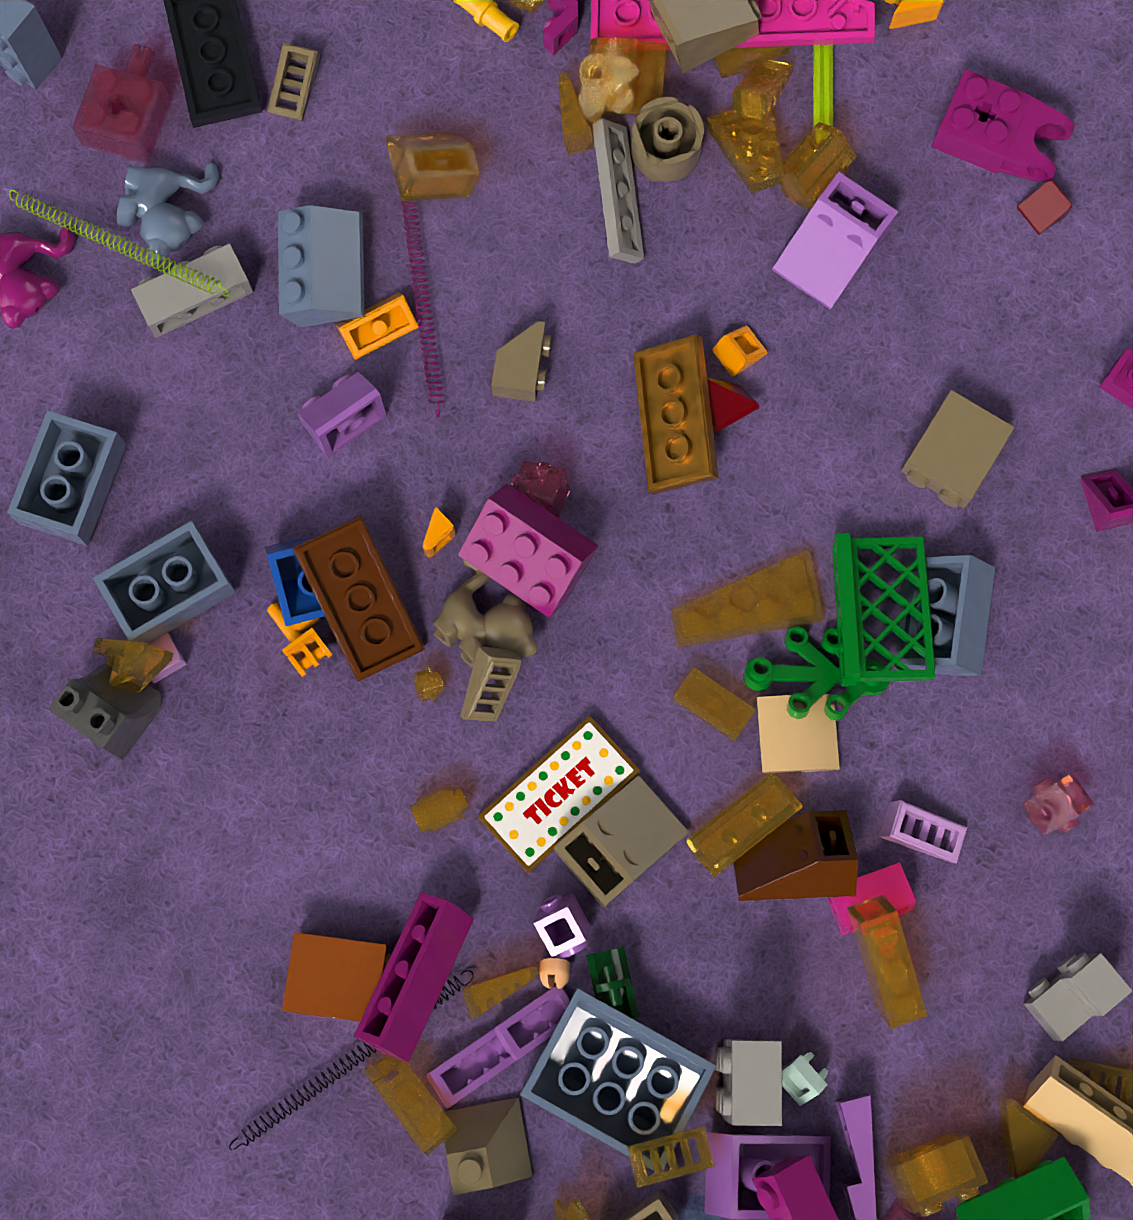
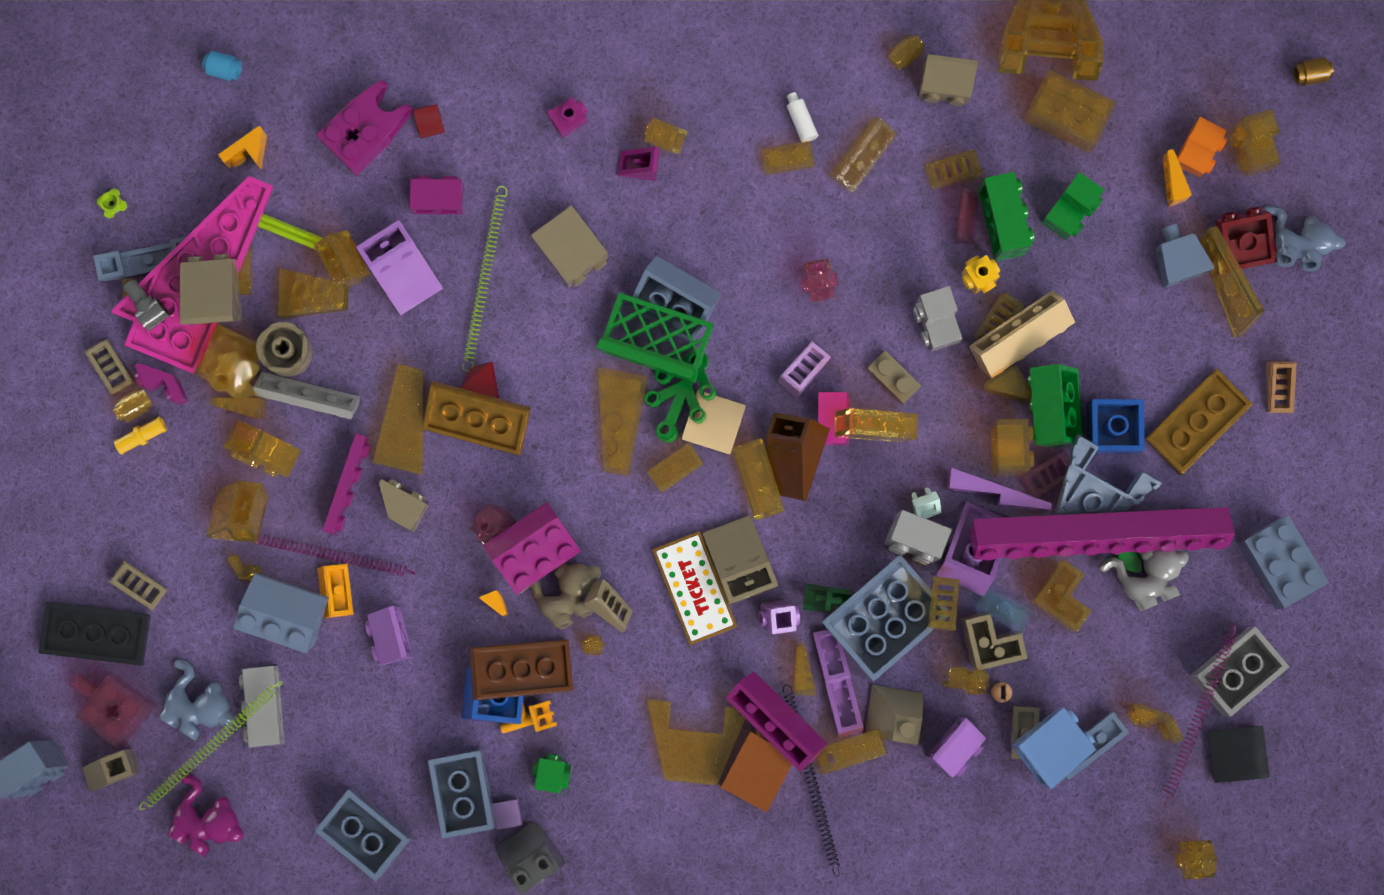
camera: 70 degrees left, 5 degrees up
(47, 138) = (111, 769): none -> dark tan slope
(133, 662) = (507, 831): clear yellow slope -> none
(233, 694) = (551, 773): none -> green brick
(327, 875) = (693, 754): none -> clear yellow wing
(359, 199) = (242, 571): none -> clear yellow arm
(439, 808) = (675, 667): clear yellow brick -> none
(506, 285) = (343, 496): none -> magenta plate
(525, 157) = (260, 448): none -> clear yellow brick
(554, 971) = (804, 633): light nougat hinge -> none
(616, 328) = (402, 432): none -> clear yellow wing
(739, 350) = (447, 358): light orange slope -> none
(758, 92) = (273, 273): clear yellow slope -> none
(866, 354) = (483, 273): none -> lime piece
(950, 253) = (436, 195): none -> magenta brick
(964, 964) = (893, 377): none -> dark tan plate

